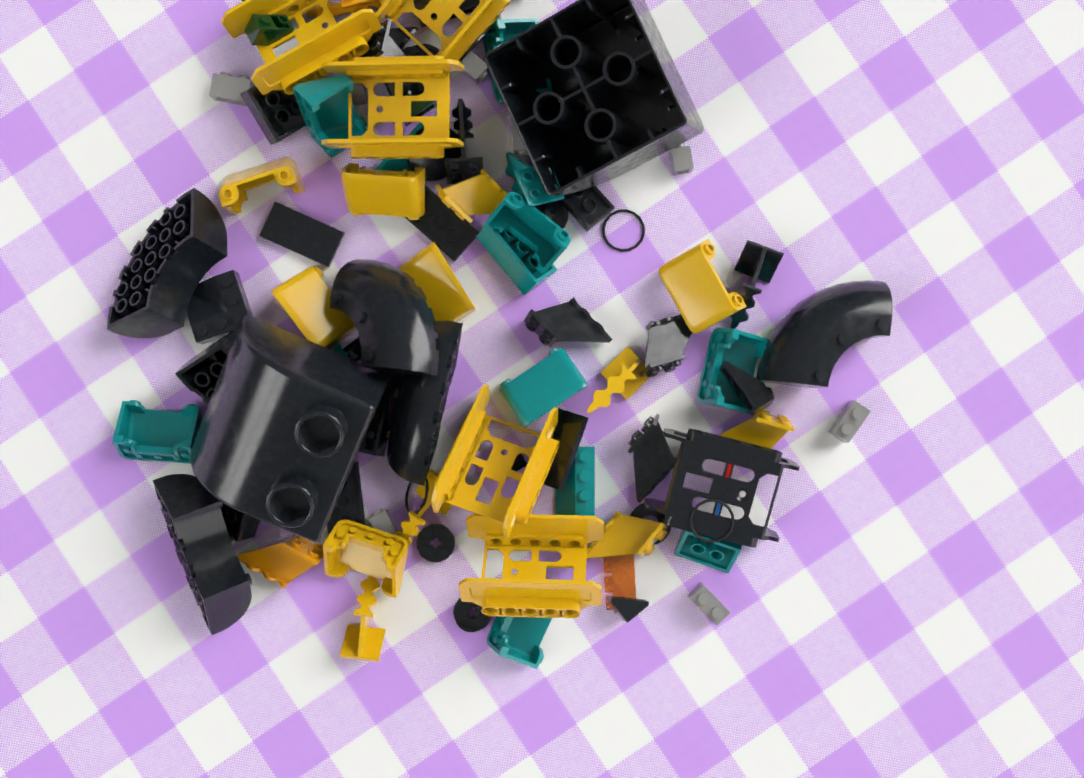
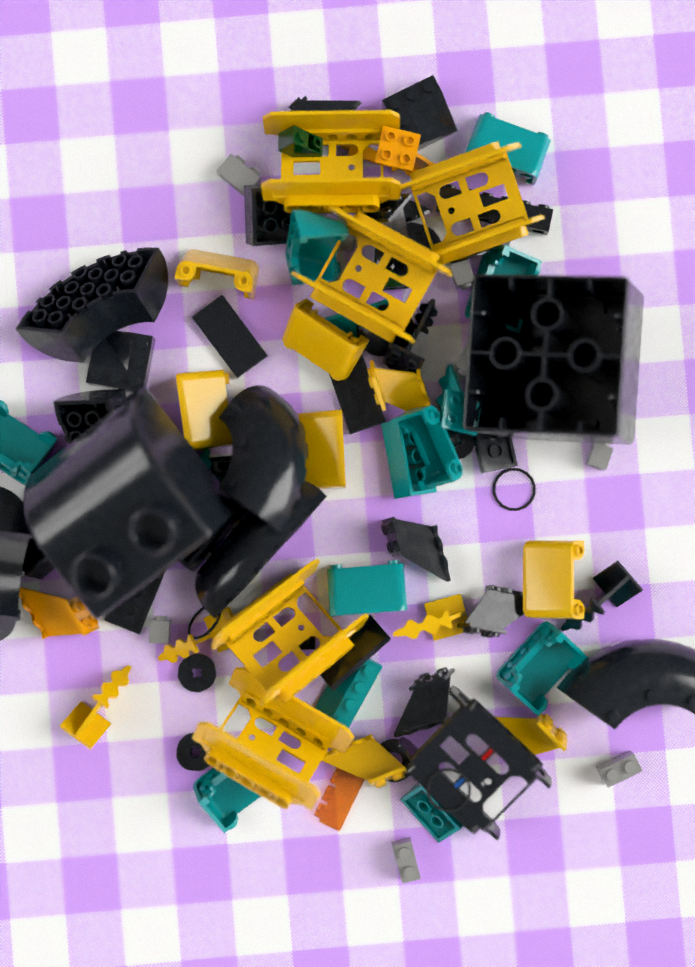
camera: 30 degrees right, 0 degrees up
(367, 552) = (133, 648): yellow windscreen -> none
(627, 607) = (333, 823): black slope -> none
(749, 389) = (546, 692): black slope -> none

